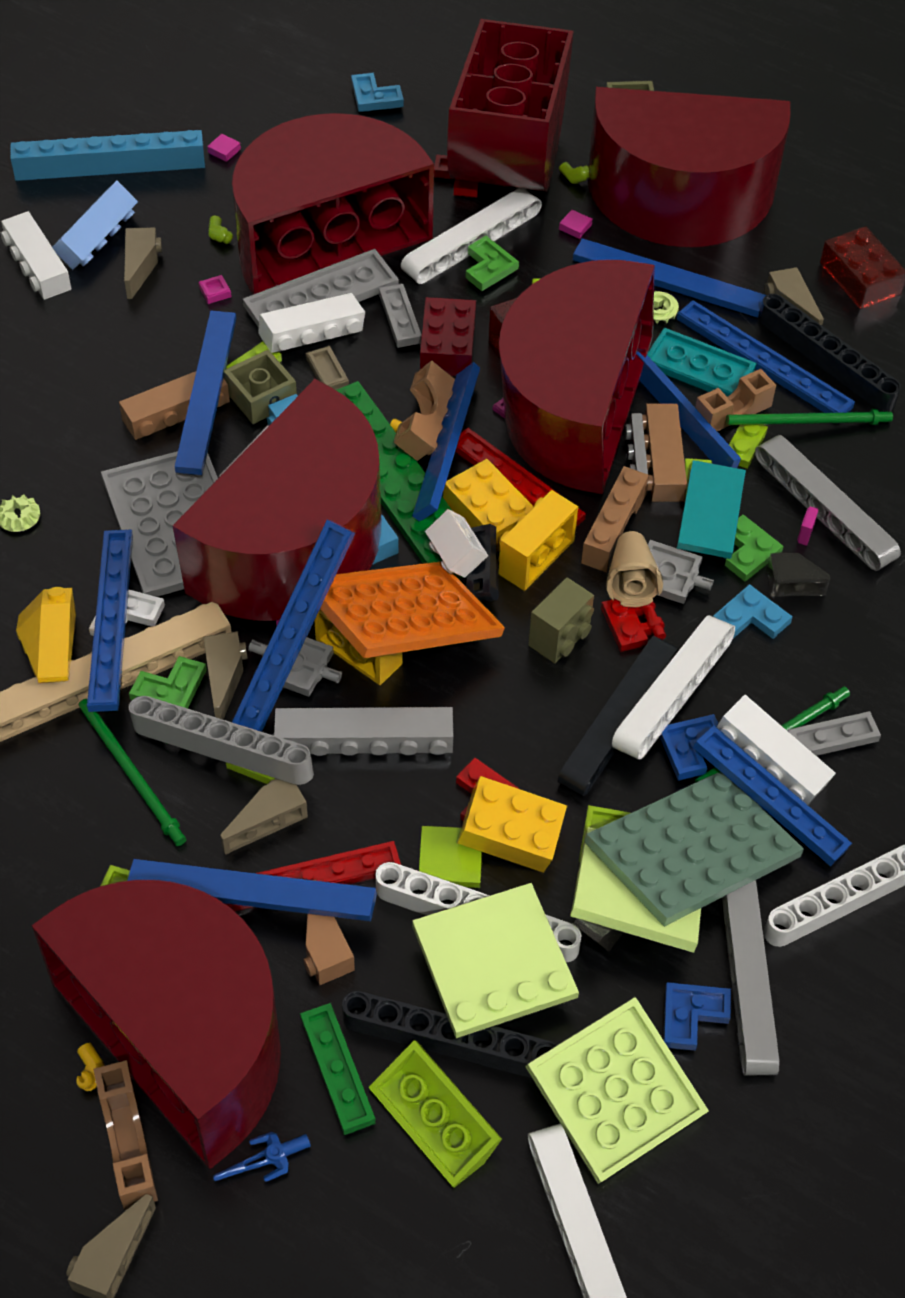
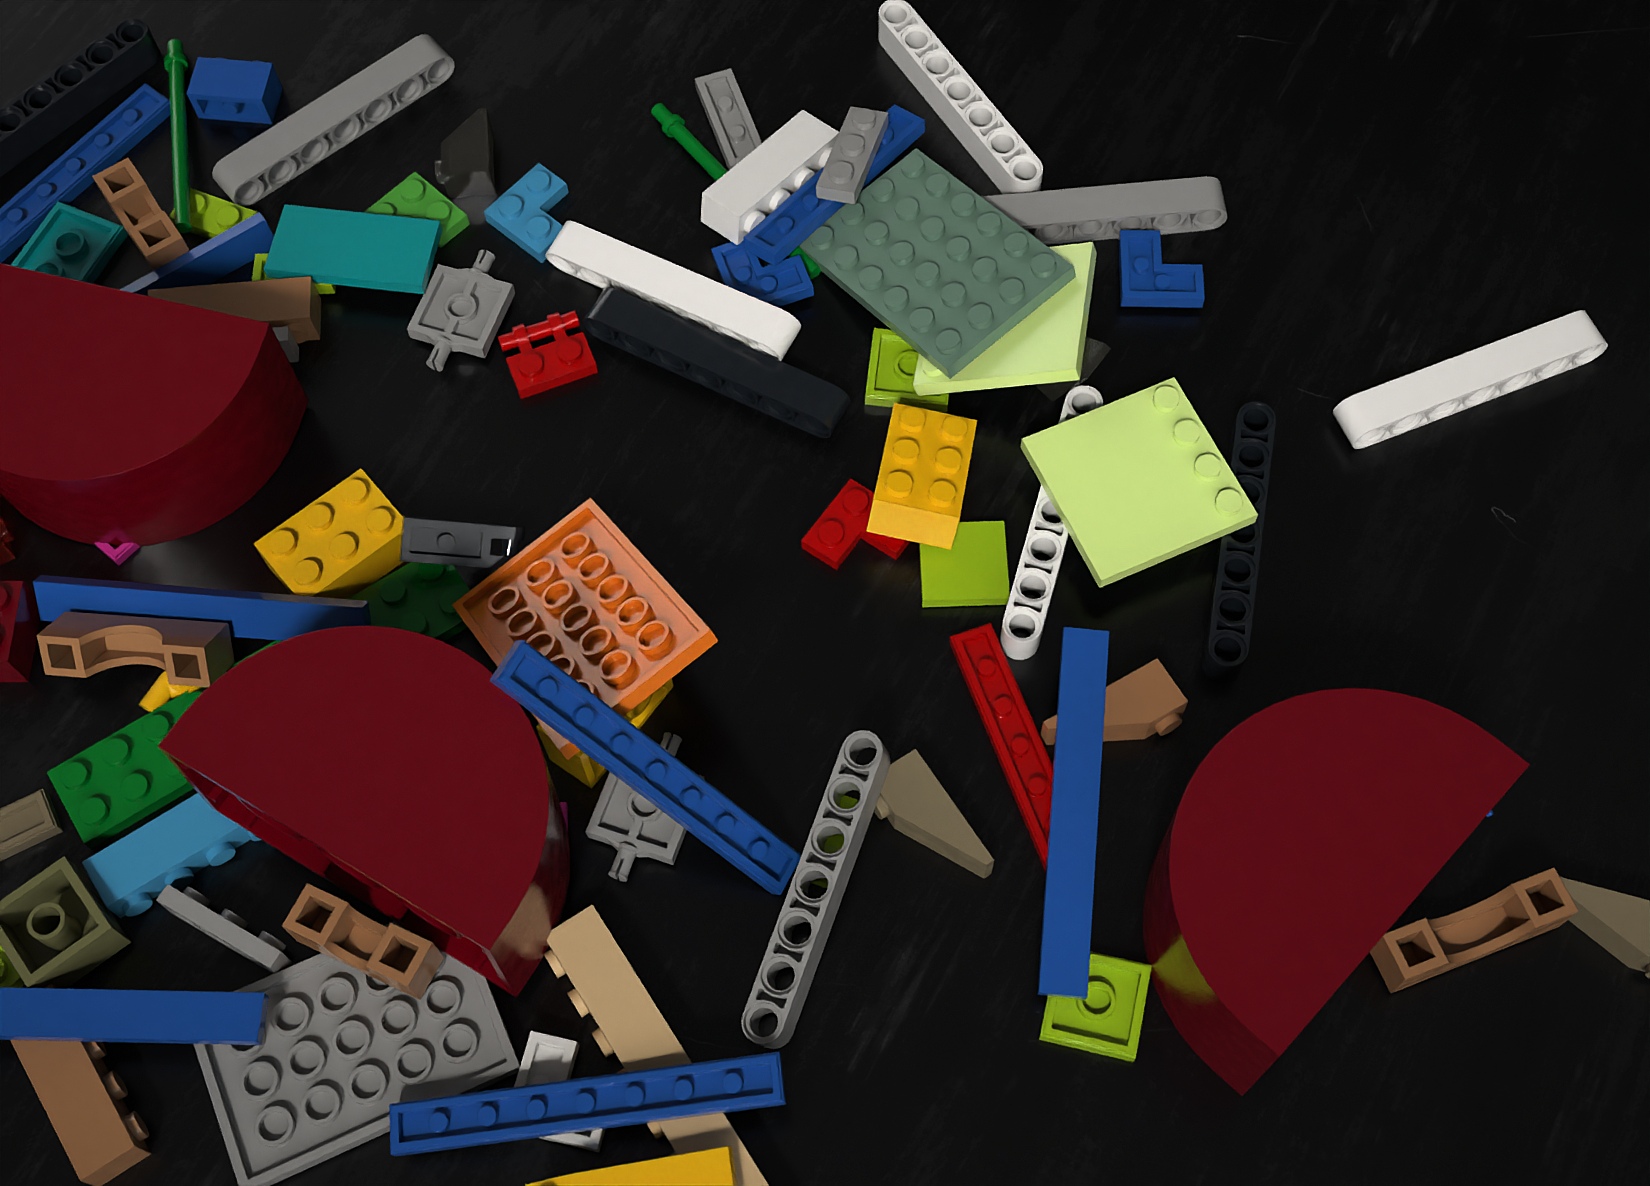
camera: 90 degrees left, 10 degrees up
(91, 1060) = (1372, 1004): yellow arm -> none
(170, 825) = (957, 959): green bar -> none
(177, 688) = (713, 986): bright green plate -> none
(225, 668) = (666, 913): dark tan slope -> none
(337, 1069) = (1312, 670): green plate -> none
(368, 729) = (770, 694): light grey brick -> none
(435, 1114) = (1347, 552): lime slope -> none
(455, 544) = (433, 573): white brick -> none
(477, 449) = (325, 468): red tile -> none
(537, 539) = (415, 464): yellow brick -> none
(561, 620) = (568, 428): olive brick -> none
(609, 526) = (406, 384): medium nougat arch -> none
(616, 1089) = (1282, 344): yellowish green plate -> none
(633, 572) = (477, 333): tan cone -> none
(793, 802) = (852, 155): none -> light grey plate
(807, 525) = (380, 140): dark pink tile -> none
(849, 447) = (235, 90): none -> blue brick

